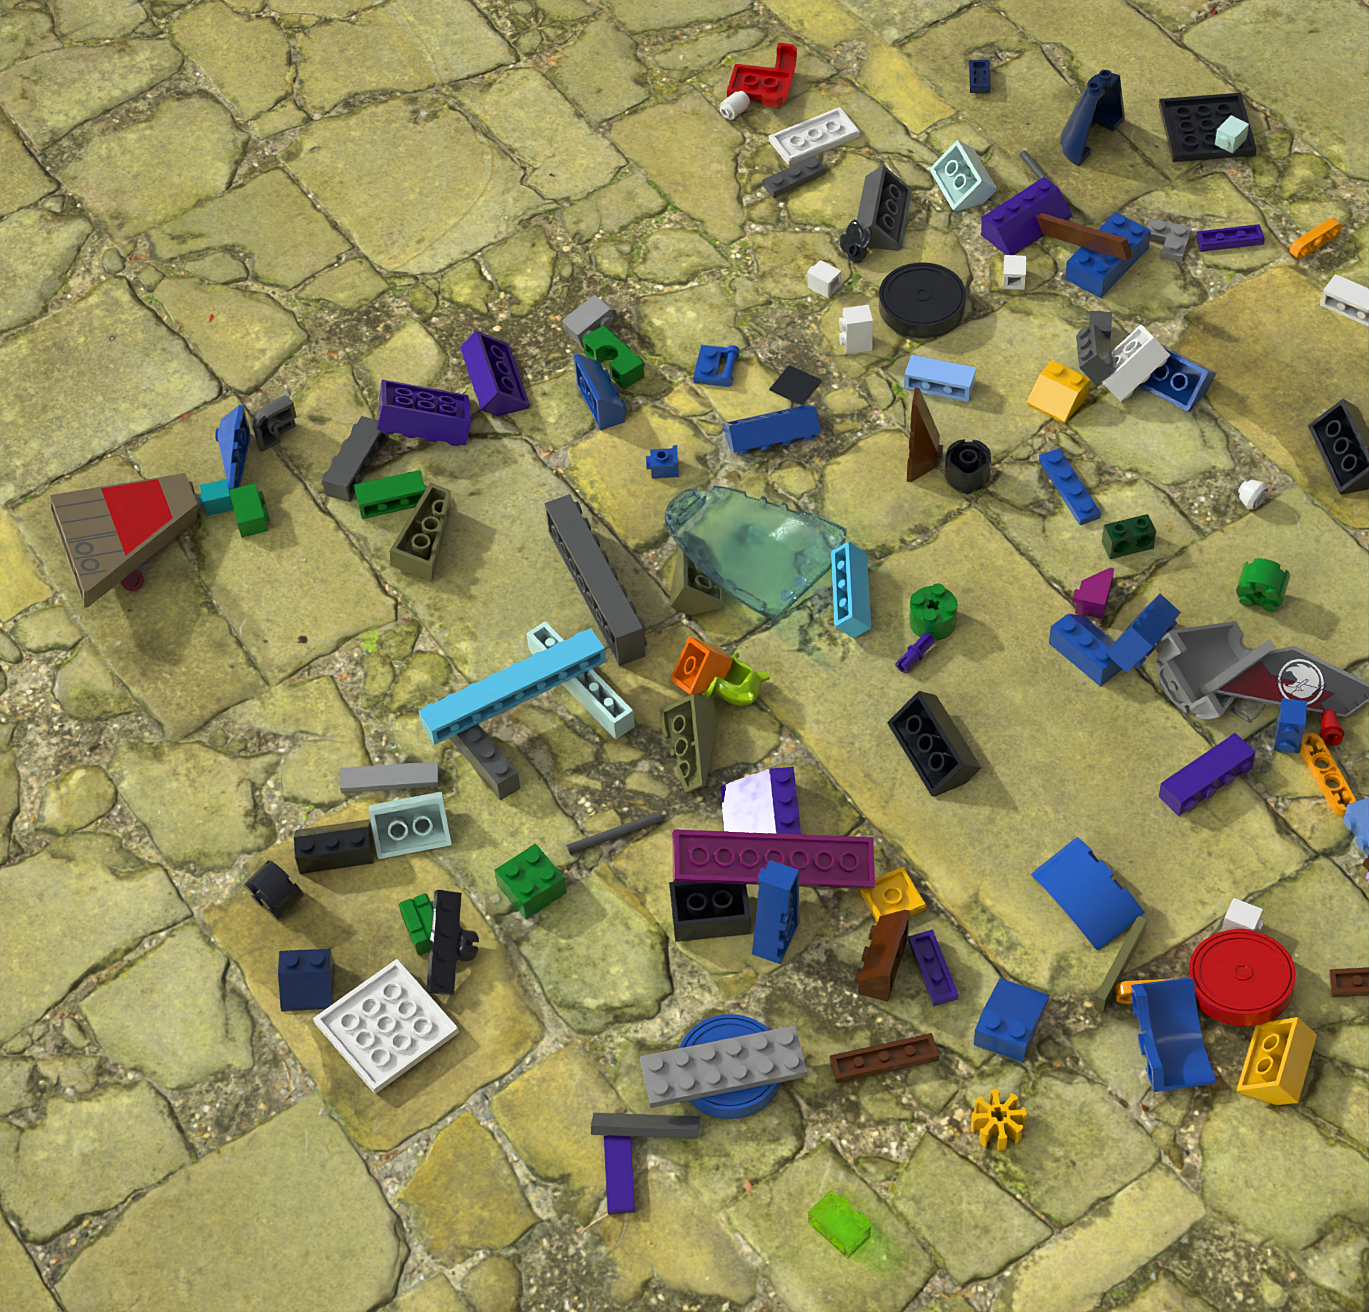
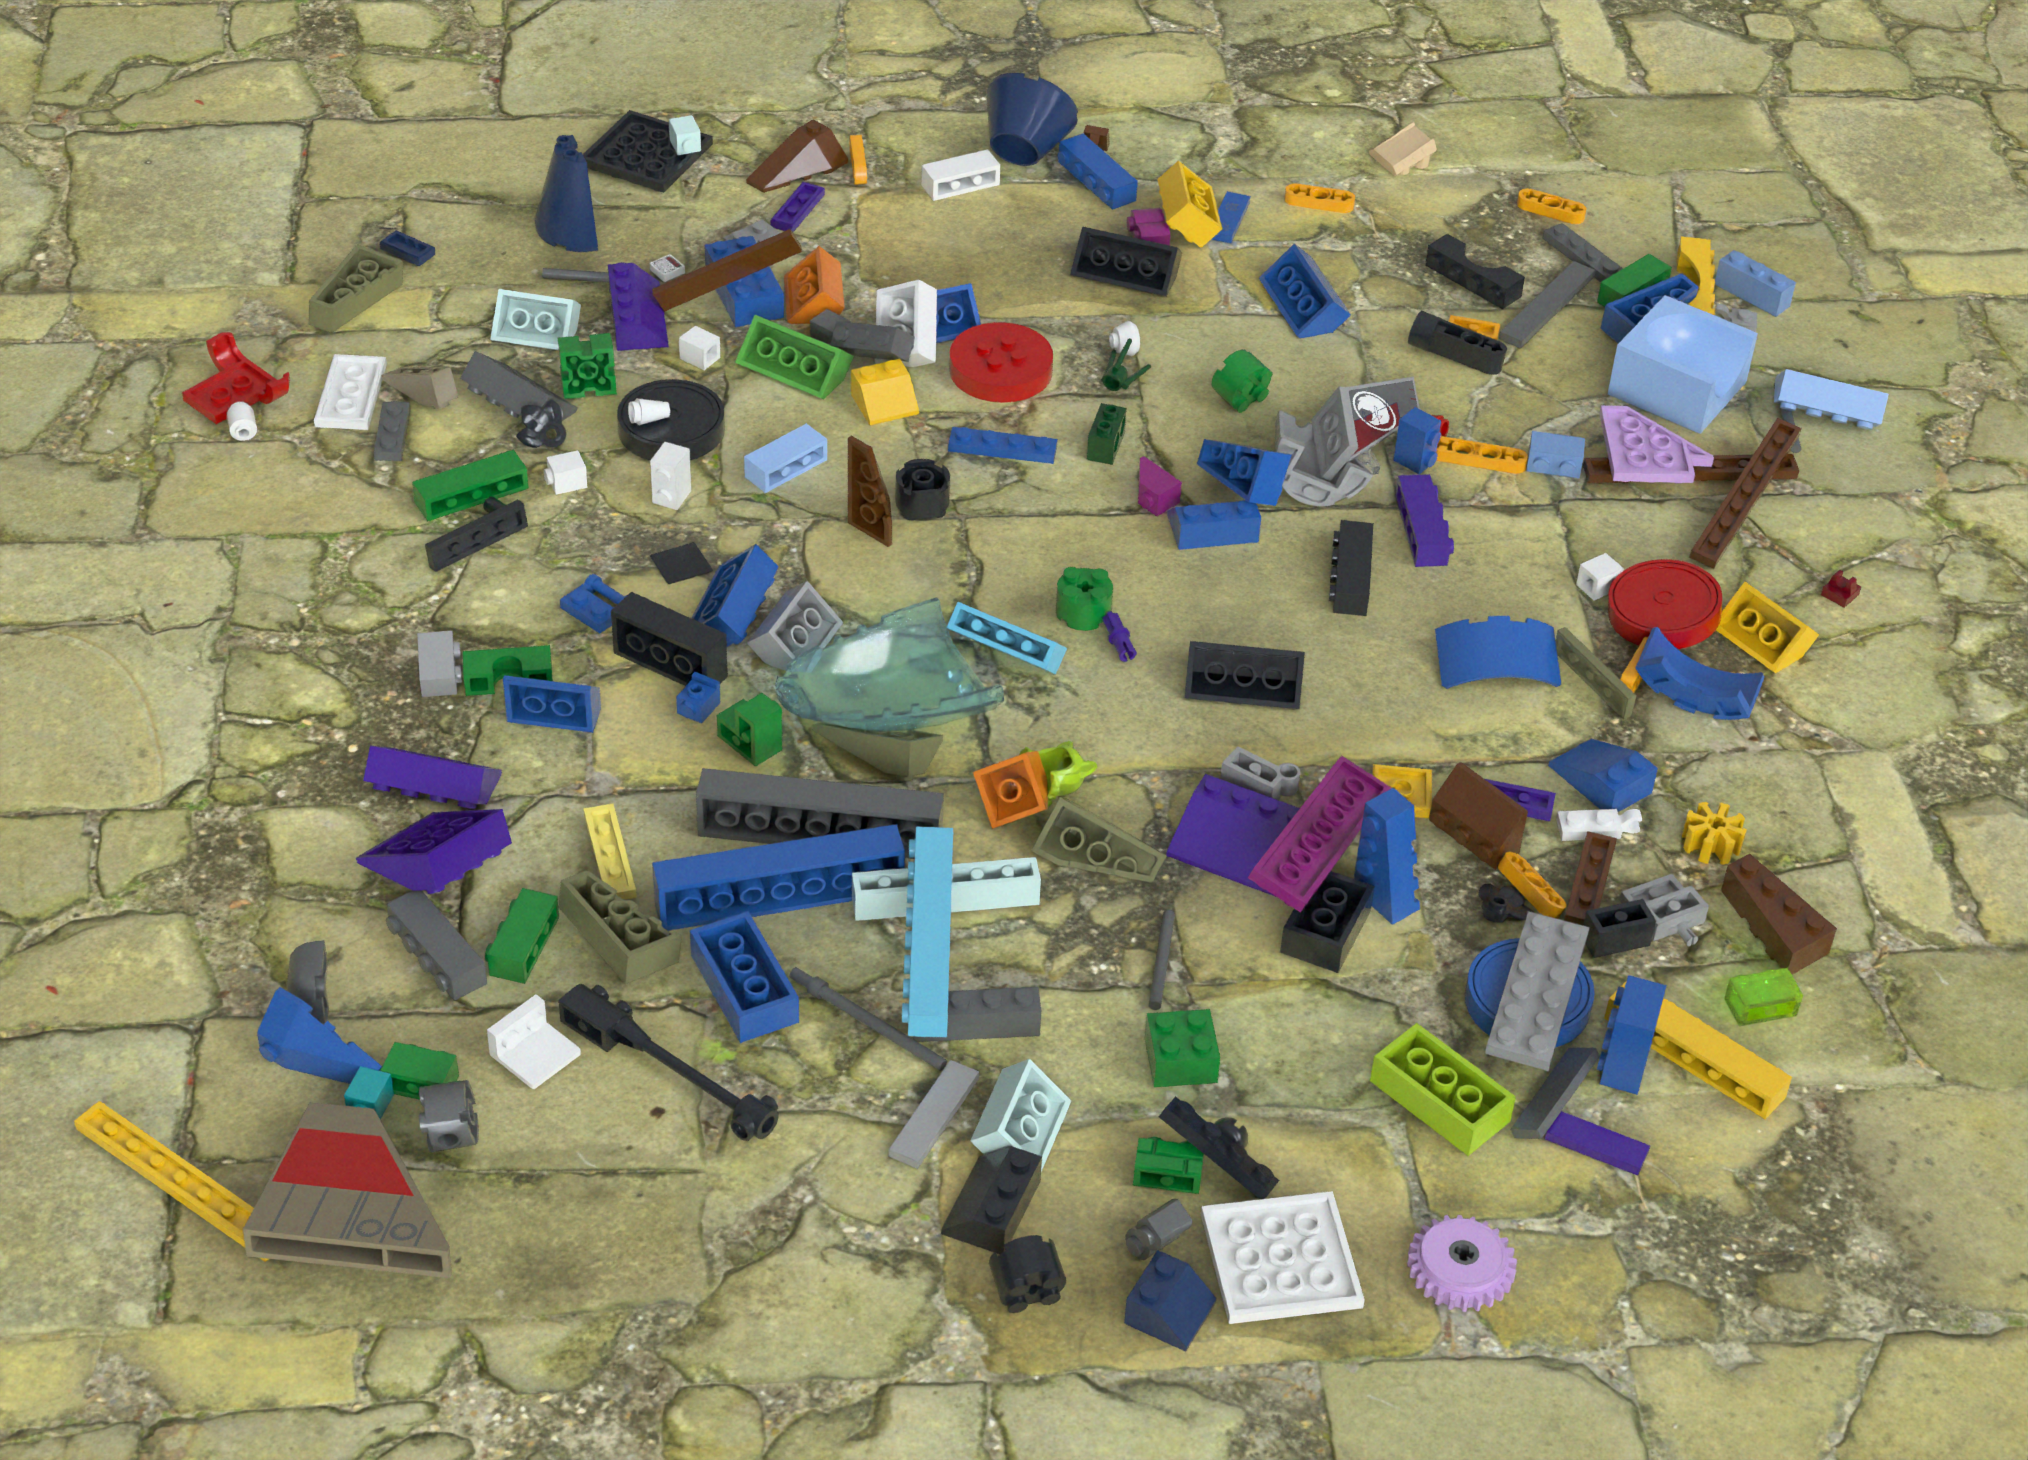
camera: 65 degrees left, 10 degrees down
(109, 436) = (166, 1170): none -> yellow plate
(217, 541) = (448, 1116): none -> dark grey brick
(305, 547) = (529, 1044): none -> white bracket
(346, 577) = (608, 1024): none -> black bar
(350, 941) = (1158, 1229): none -> dark grey brick
(427, 617) = (744, 976): none -> blue brick
(447, 1152) = (1461, 1263): none -> lavender gear
(453, 664) = (820, 989): none -> dark grey bar
(492, 496) = (609, 849): none -> light yellow plate
(515, 580) = (770, 876): none -> blue brick
(592, 1051) = (1442, 1089): none -> lime brick
(650, 503) = (752, 728): none -> green brick
(694, 418) = (667, 641): none -> black brick
(711, 1143) = (1631, 1034): none -> blue brick
(727, 271) = (496, 525): none -> black piece
(753, 1201) = (1716, 1059): none -> yellow brick
(770, 241) = (470, 485): none -> green brick
(771, 475) = (795, 626): none -> light grey slope
(819, 802) = (1260, 775): none -> light grey hinge
(824, 1012) = (1502, 903): none -> black plate
(835, 1094) = (1619, 928): none -> black brick
(845, 163) = (424, 384): none -> dark tan slope
(858, 1017) = (1532, 885): none -> light orange beam
(888, 1119) = (1672, 906): none -> light grey plate
(904, 280) = (645, 411): none -> white cone
(905, 75) = (354, 287): none -> olive wedge
(929, 226) = (587, 365): none -> green brick
(929, 1204) = (1777, 915): none -> reddish brown wedge
(952, 1037) = (1575, 824): none -> white plate
(1051, 324) = (793, 358): none -> bright green slope
(1090, 209) = (667, 268): none -> white tile
(1110, 755) = (1352, 568): none -> black brick
(1139, 296) = (813, 287): none -> orange slope
(1158, 437) = (1001, 362): none -> red brick
(1206, 509) = (1116, 374): none -> dark green plant
(1288, 207) = (803, 153): none -> reddish brown wedge

